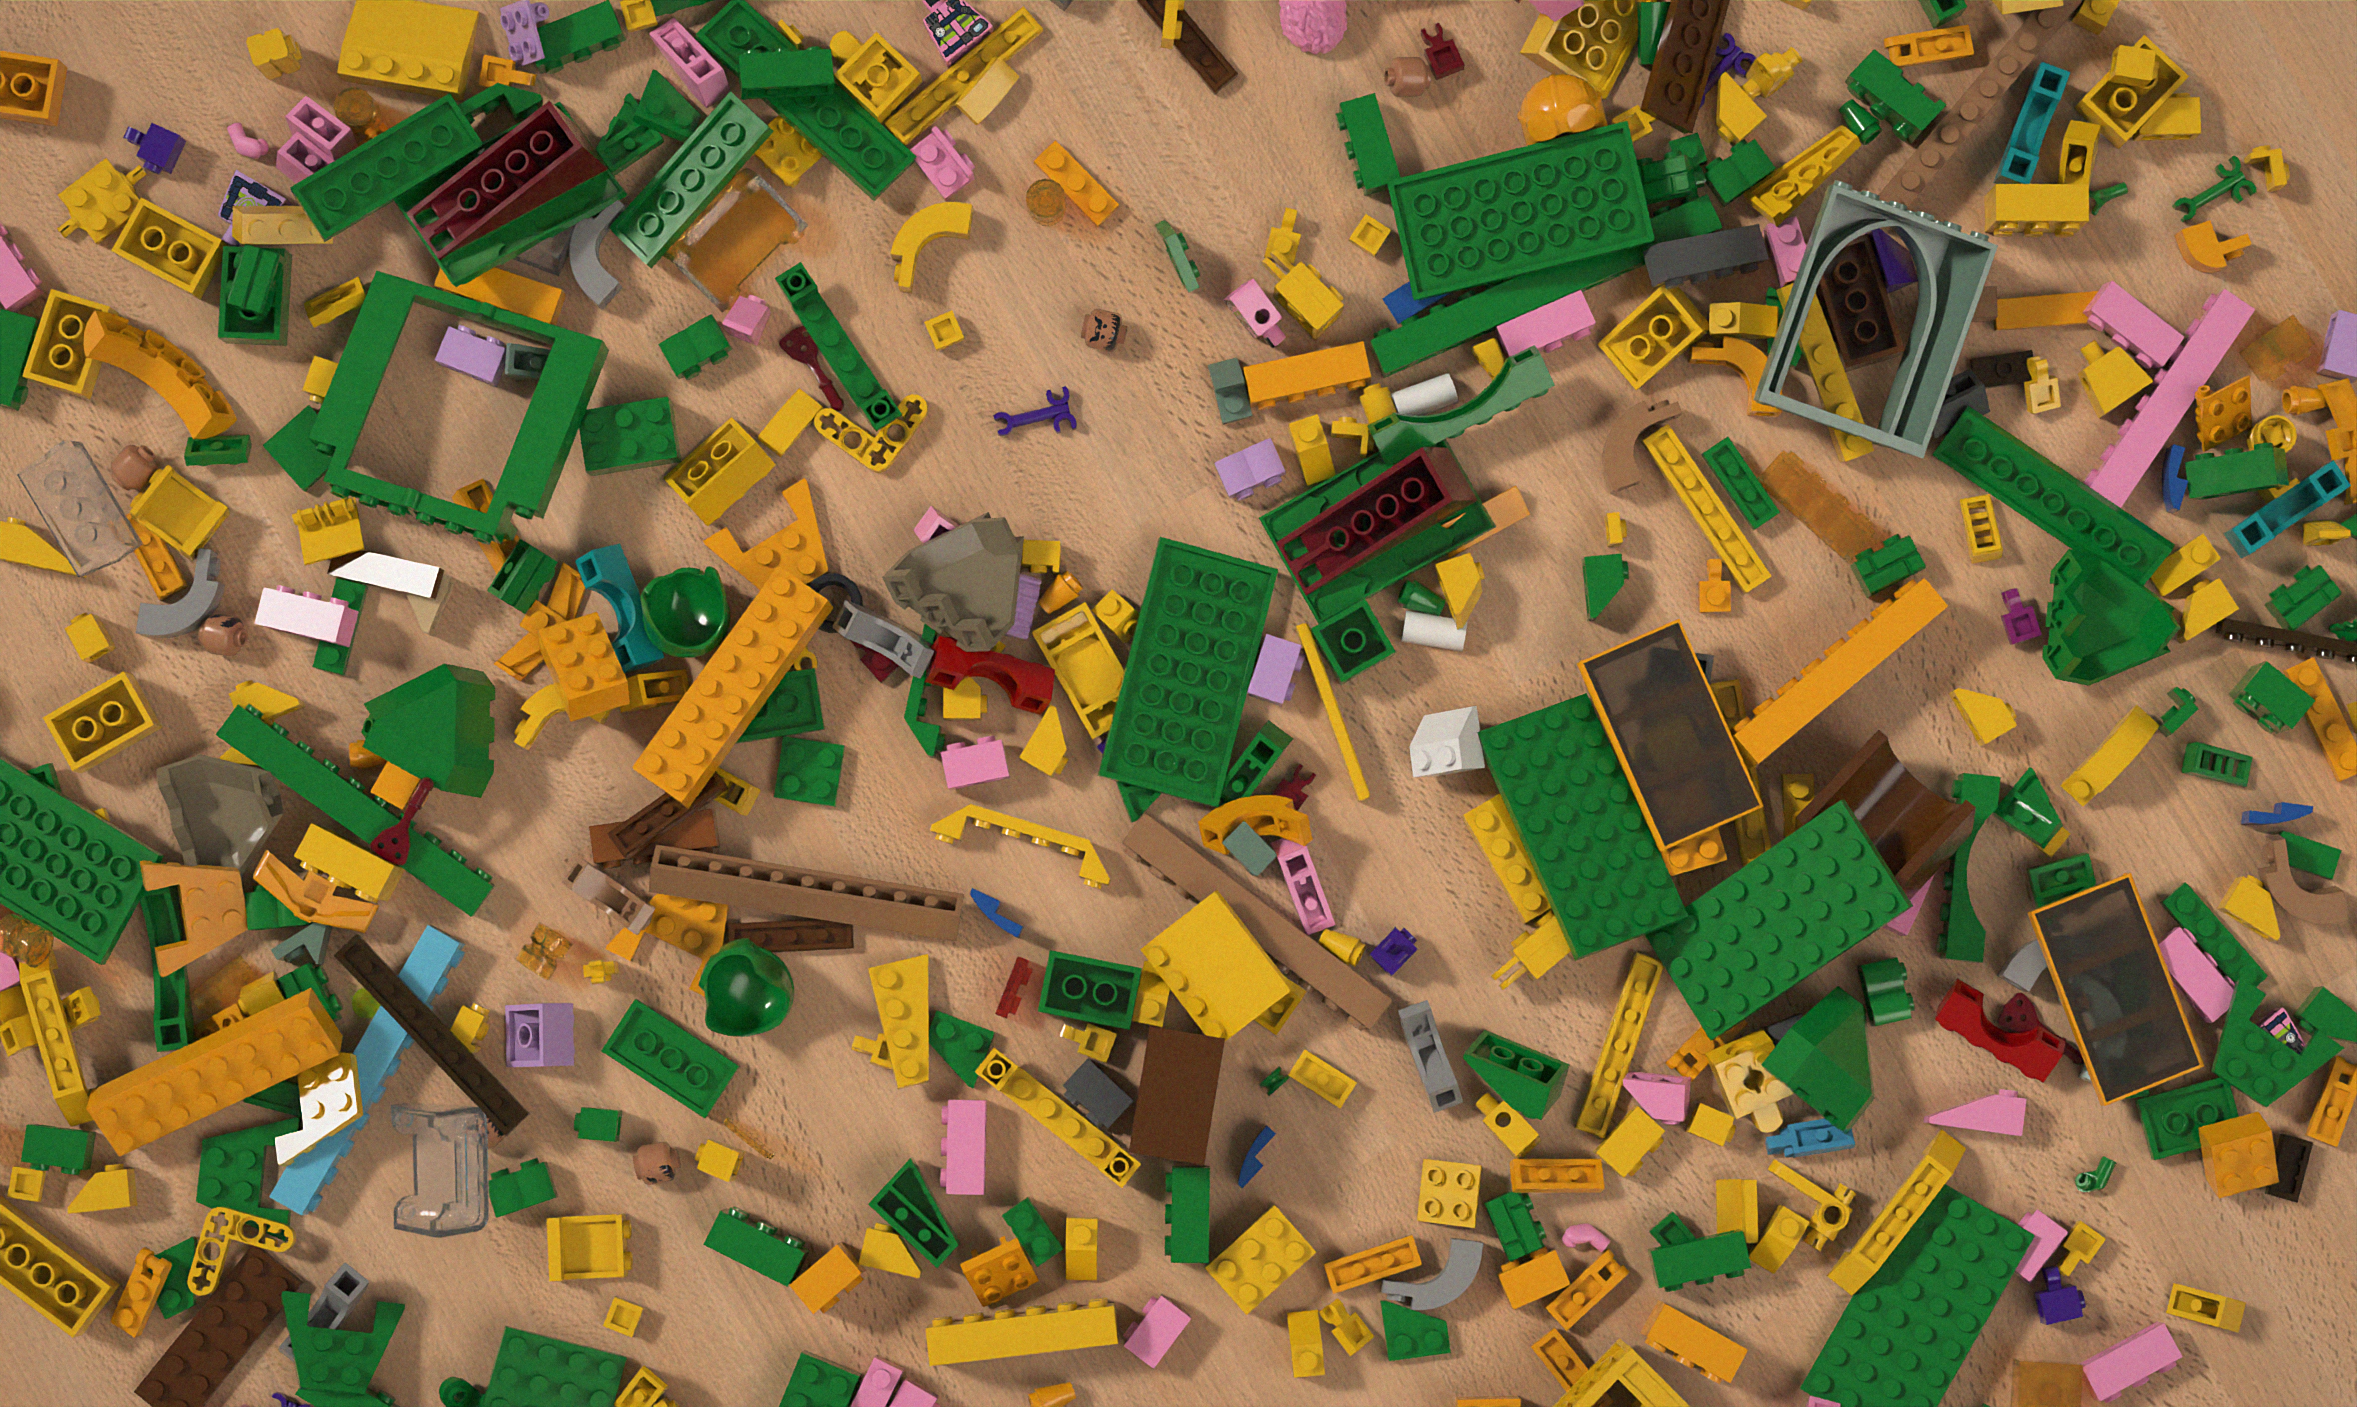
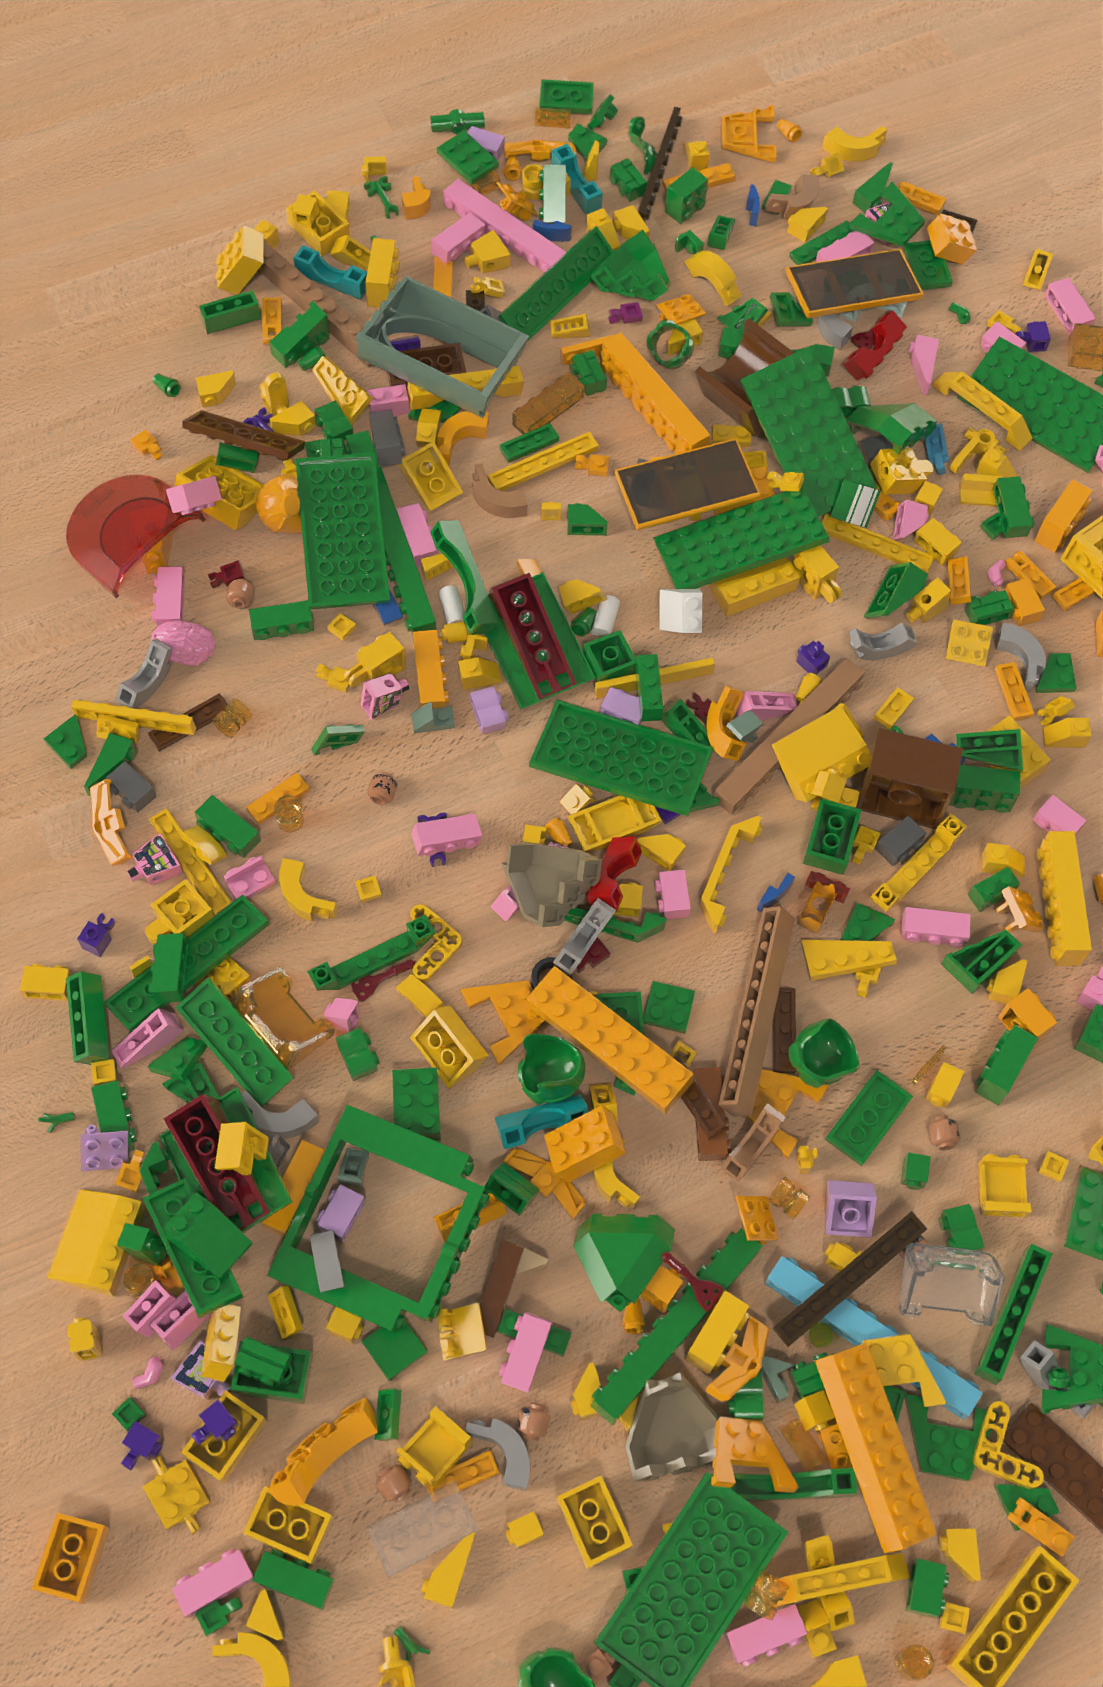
camera: 90 degrees left, 20 degrees down
(174, 235) = (217, 1422): none -> dark purple brick
(196, 126) = (128, 1413): none -> green tile
(323, 1314) = (1059, 1377): none -> green plate
(392, 342) = (326, 1260): none -> light grey arch
(394, 184) = (207, 1236): none -> green slope
(399, 98) = (142, 1244): none -> green brick
(410, 1257) = (1013, 1314): none -> green brick
(508, 907) = (757, 1218): none -> light orange hinge
(514, 203) = (238, 1146): none -> yellow panel
(976, 978) = (825, 892): none -> light orange piece
(1019, 118) = (227, 826): none -> green brick
(1033, 431) = (446, 834): none -> bright pink brick
(1157, 978) = (829, 785): none -> yellow brick
(1193, 98) = (230, 720): none -> clear yellow wheel
(1242, 1220) = (993, 748): none -> green wedge
(1296, 701) = (649, 687): none -> green brick
(1676, 1005) = (855, 503): none -> green slope
(1688, 894) = (788, 482): none -> yellow plate
(1934, 562) = (569, 351): none -> light orange plate
(1952, 663) = (654, 336): none -> green piece
(2029, 705) = (680, 309): none -> light orange hinge
(2300, 320) = (467, 157): none -> green plate

